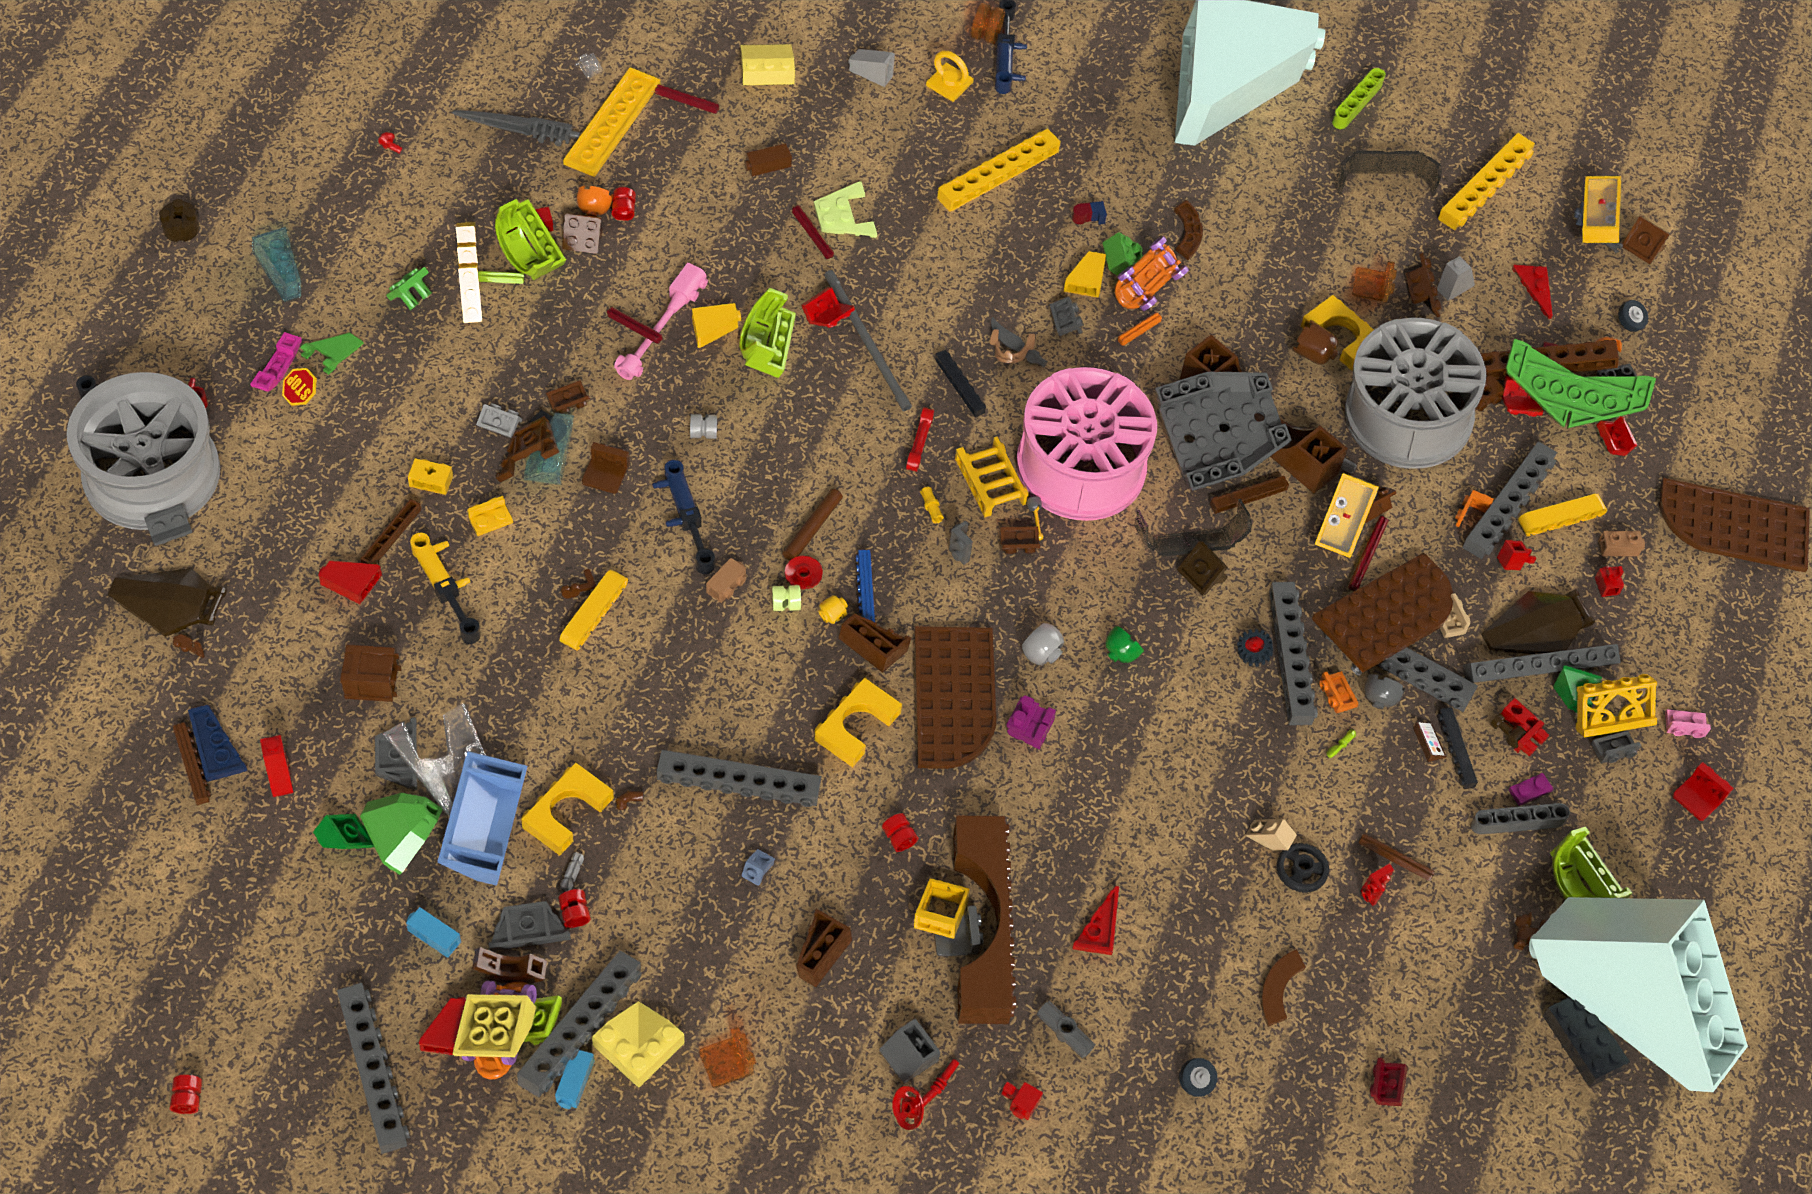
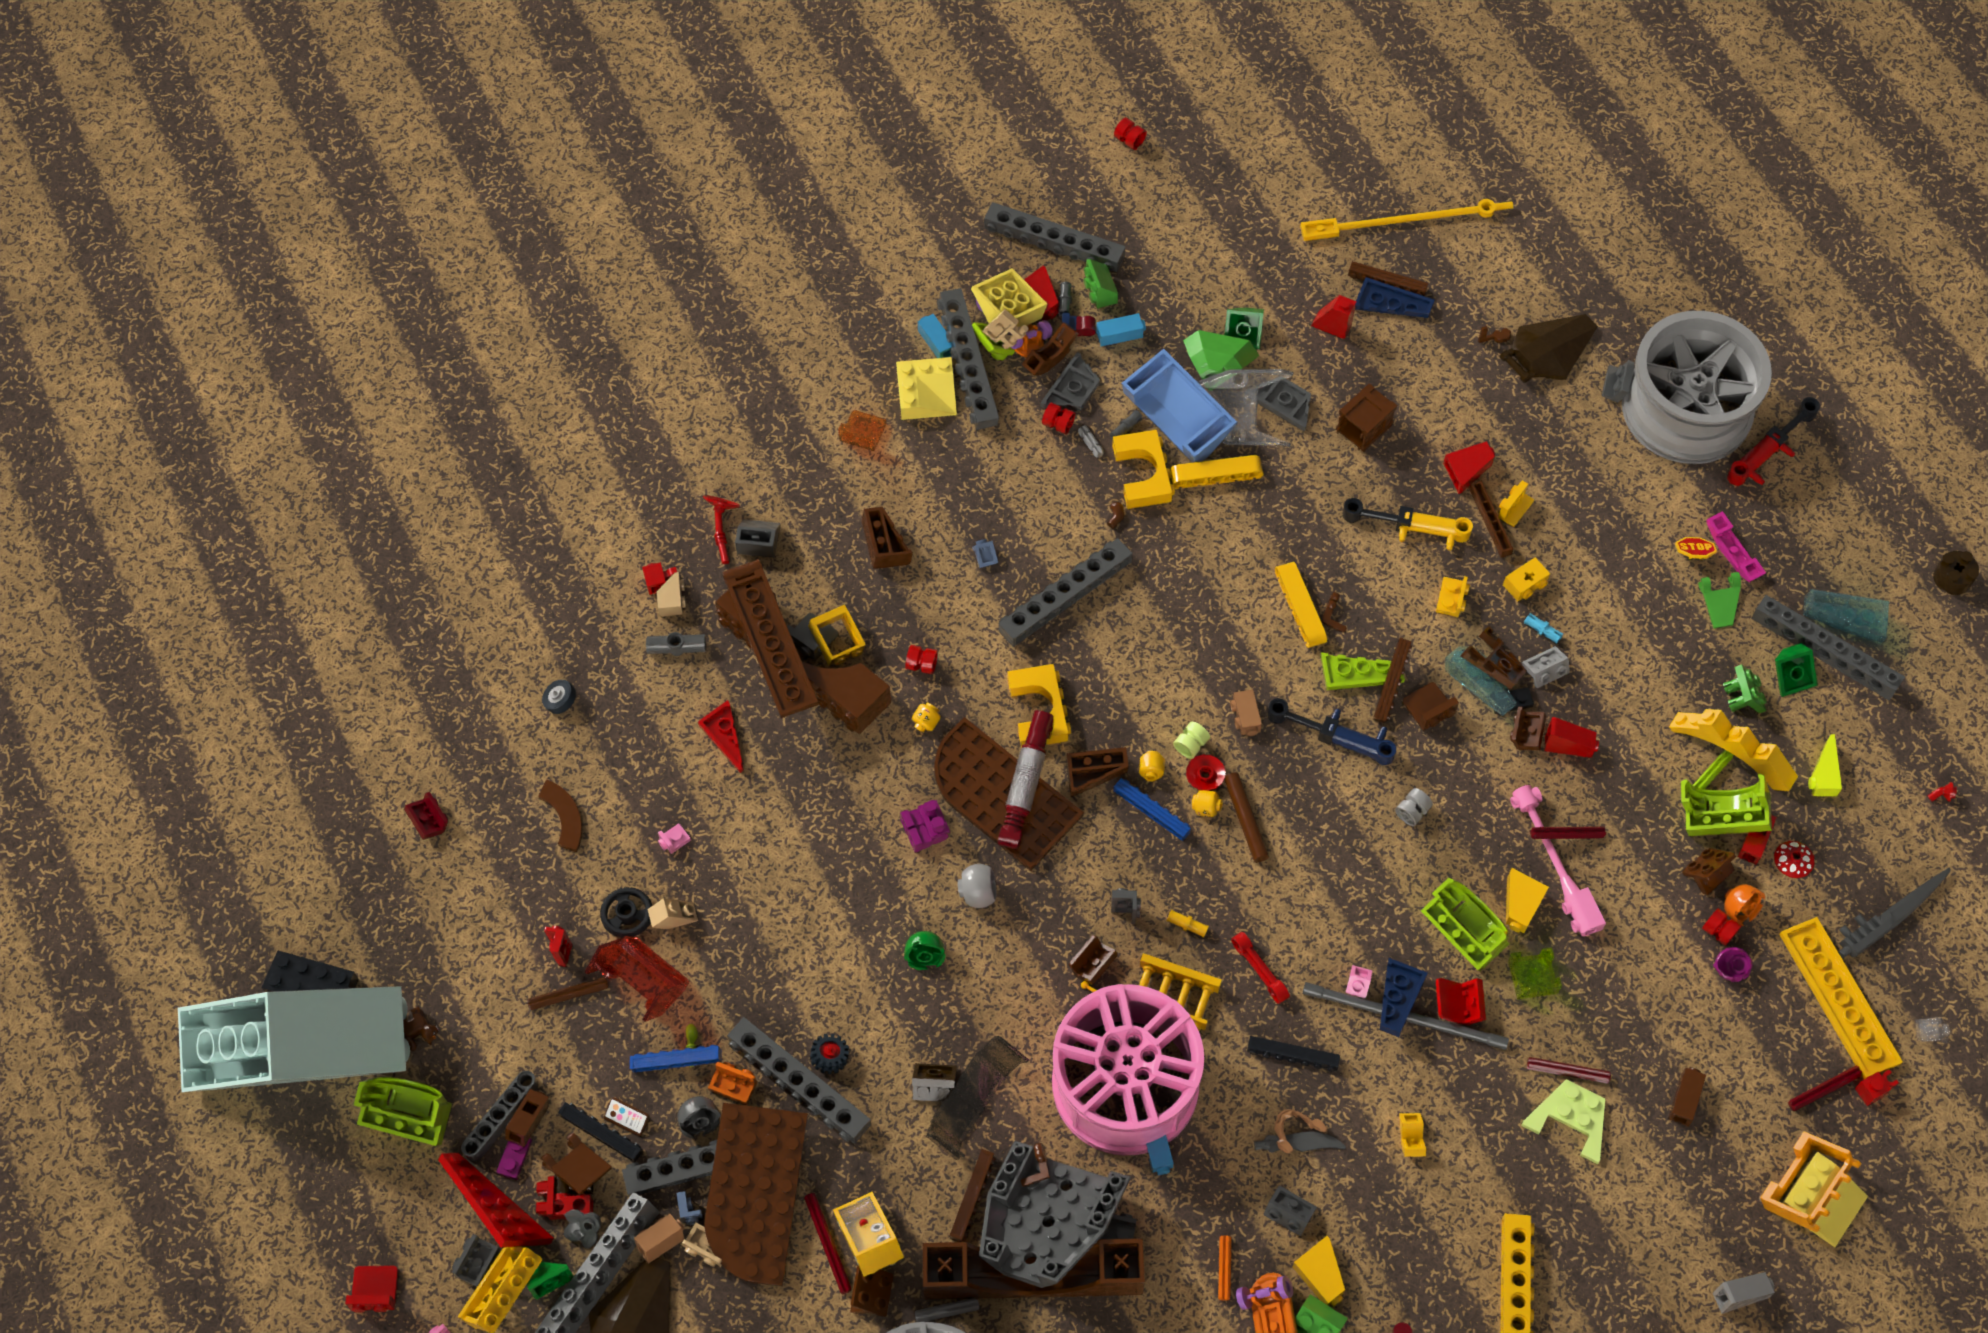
camera: 140 degrees right, 5 degrees up
(165, 847) = (1329, 228): none -> yellow bar
(322, 263) = (1828, 647): none -> dark grey brick
(358, 271) = (1795, 669): none -> green slope
(362, 524) = (1516, 505): none -> yellow bracket
(398, 982) = (1100, 284): none -> bright green slope
(435, 212) = (1826, 775): none -> neon yellow slope
(435, 1005) = (1064, 298): none -> dark grey pin
(458, 972) = (1082, 325): none -> dark red leg
(464, 442) = (1543, 628): none -> medium azure pin
(519, 751) = (1215, 471): none -> yellow beam
(523, 193) = (1788, 864): none -> red dish
(532, 854) = (1126, 425): none -> dark grey pin
(535, 992) = (1001, 325): none -> tan plate
(555, 366) = (1570, 739): none -> red slope
(609, 501) = (1392, 680): none -> reddish brown piece
(618, 533) = (1347, 672): none -> lime wing
(646, 183) = (1733, 964): none -> magenta hair
(664, 70) = (1875, 1087): none -> red brick
(747, 86) = (1802, 1149): none -> light orange hinge
(761, 282) = (1534, 974): none -> clear neon green panel
(828, 554) = (1206, 803): none -> yellow head
(856, 346) = (1400, 994): none -> dark blue wing
(869, 376) = (1359, 981): none -> bright pink bracket
(931, 667) = (1026, 779): none -> piece
(944, 791) = (926, 717): none -> yellow head
(949, 285) = (1412, 1134): none -> yellow slope
(1007, 927) = (769, 638): none -> reddish brown hinge
(1032, 1070) = (670, 597): none -> tan slope
(1193, 456) = (1044, 1171): none -> reddish brown piece
(1216, 889) = (673, 838): none -> bright pink bracket
(1325, 809) = (642, 970): none -> clear red windscreen
(1363, 738) = (675, 1058): none -> blue piece
(1445, 646) = (685, 1206): none -> sand blue bracket
(1478, 646) = (659, 1237): none -> medium nougat brick
(1495, 732) = (578, 1168): none -> reddish brown flag
(1504, 794) = (527, 1117): none -> reddish brown brick
(1520, 692) = (580, 1228): none -> dark grey plate
(1576, 751) = (497, 1211): none -> red wing

